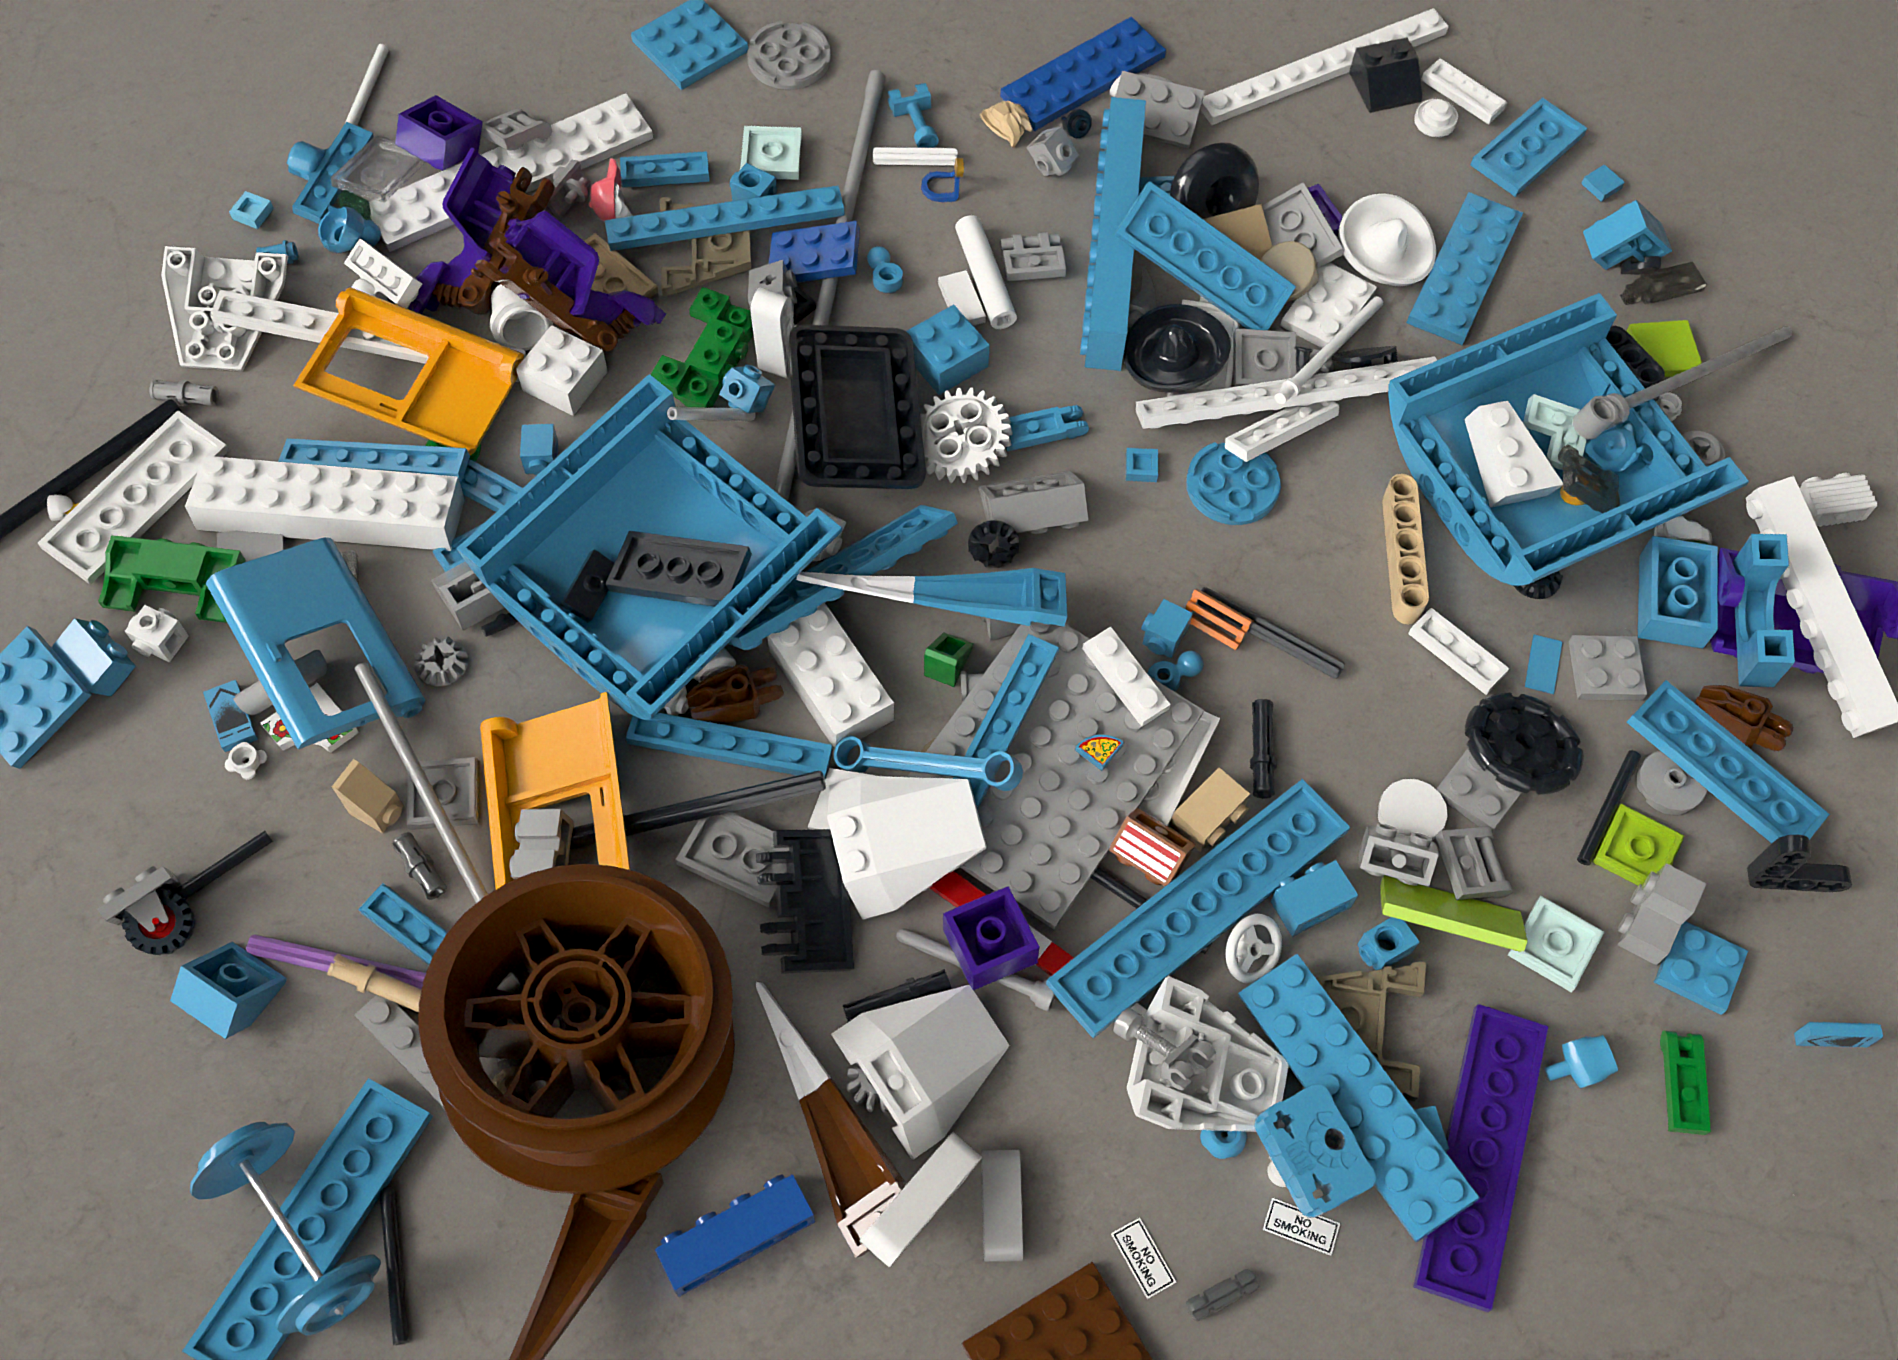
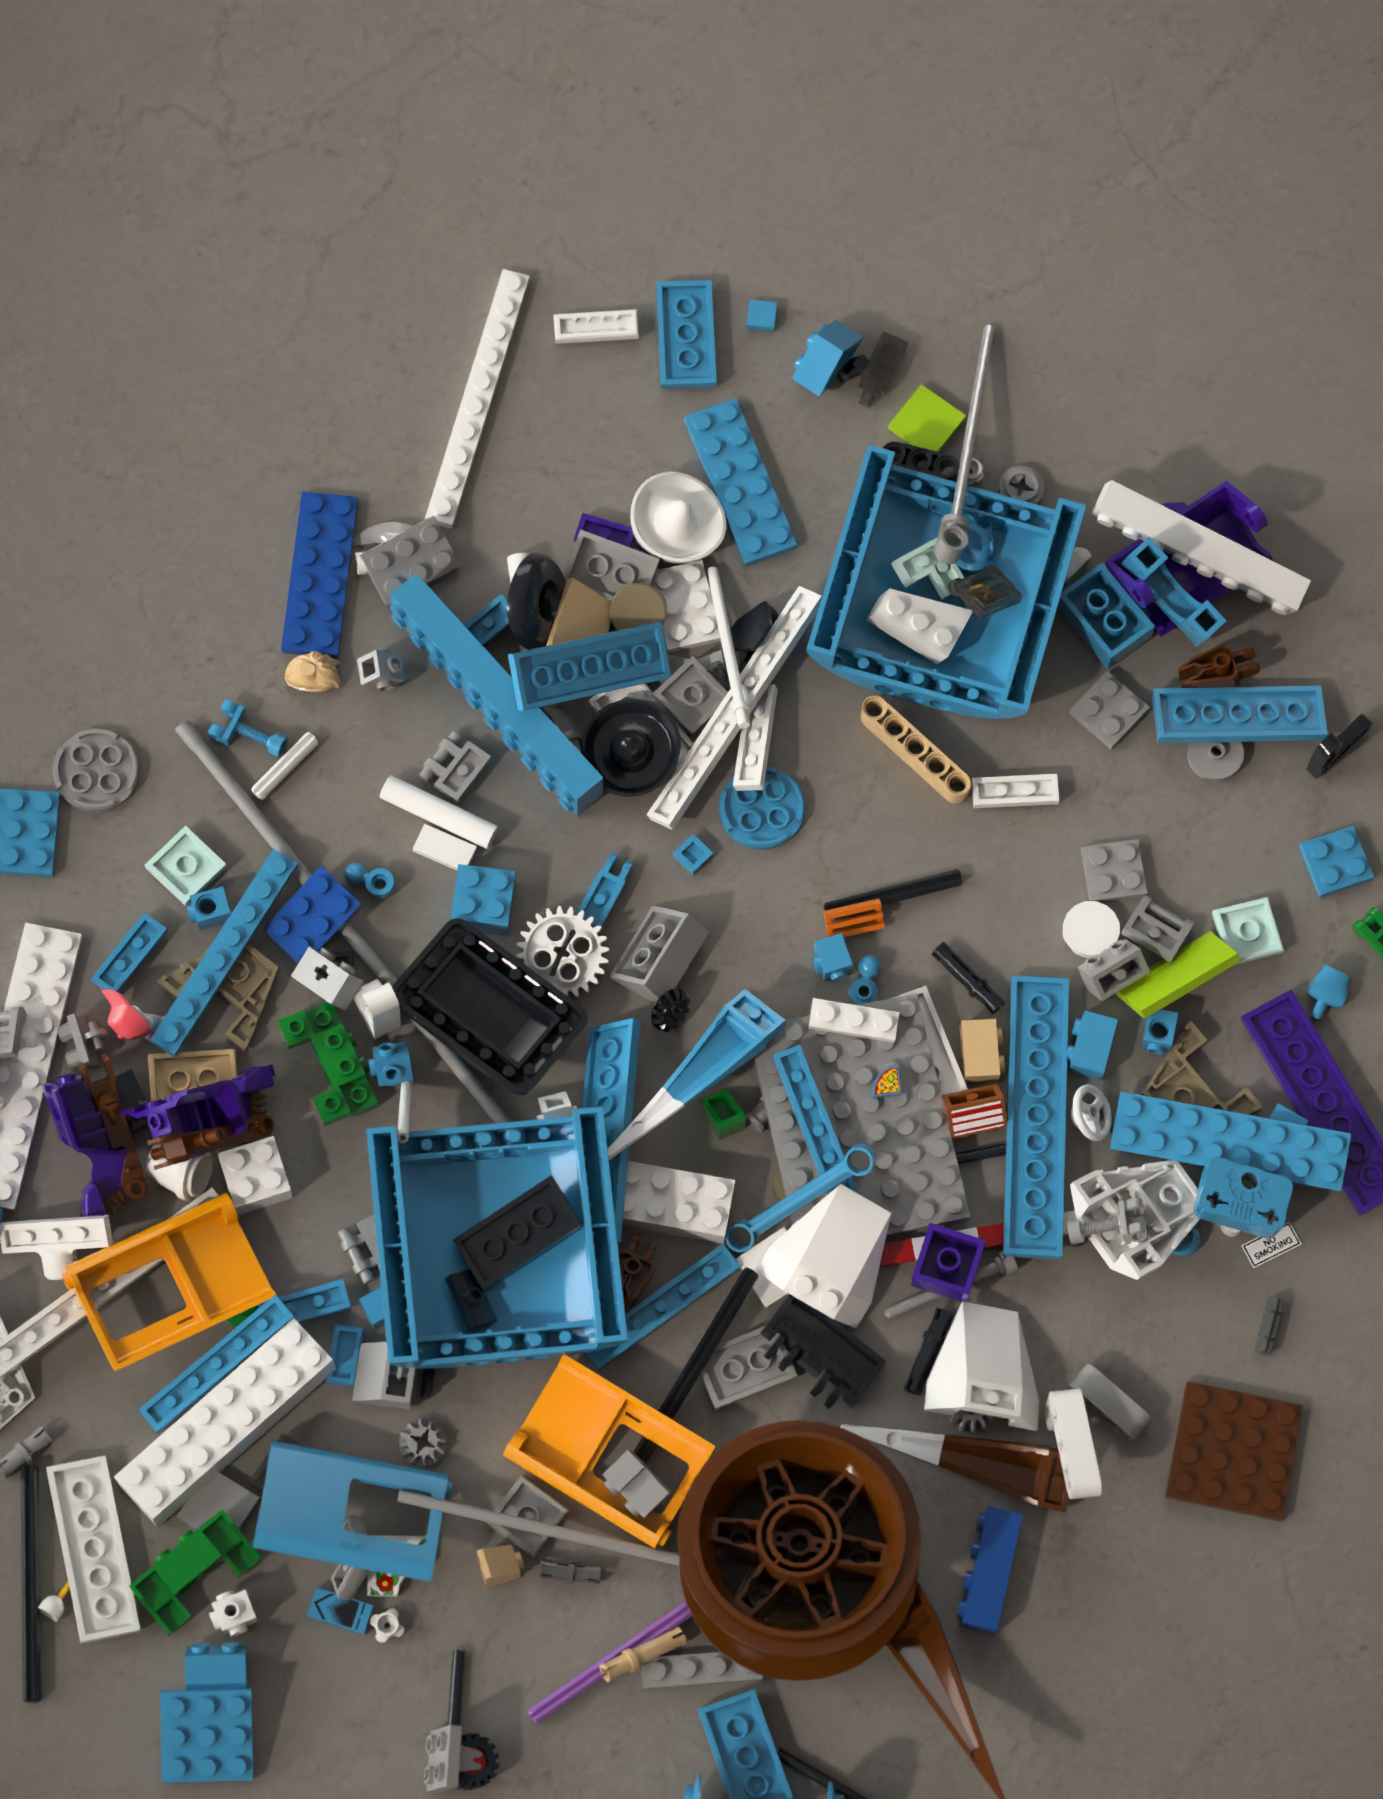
camera: 50 degrees left, 10 degrees up
(226, 989) = (555, 1752): dark azure slope -> none
(403, 922) = (609, 1609): dark azure tile -> none
(538, 447) = (309, 1245): dark azure brick -> none
(944, 197) = (338, 751): blue piece -> none
(1077, 123) = (367, 626): black plate -> none
(1143, 1258) = (1208, 1350): white sticker -> none
(1387, 74) = (533, 367): black slope -> none
(1436, 117) = (601, 371): white plate -> none
(1534, 726) = (1115, 803): black plate -> none
(1543, 664) = (1069, 745): dark azure sticker -> none
(1608, 808) = (1196, 808): black piece -> none
(1636, 845) = (1236, 819): lime tile -> none
(1659, 912) = (1285, 851): light grey brick -> none
(1838, 499) = (1133, 443): white brick -> none

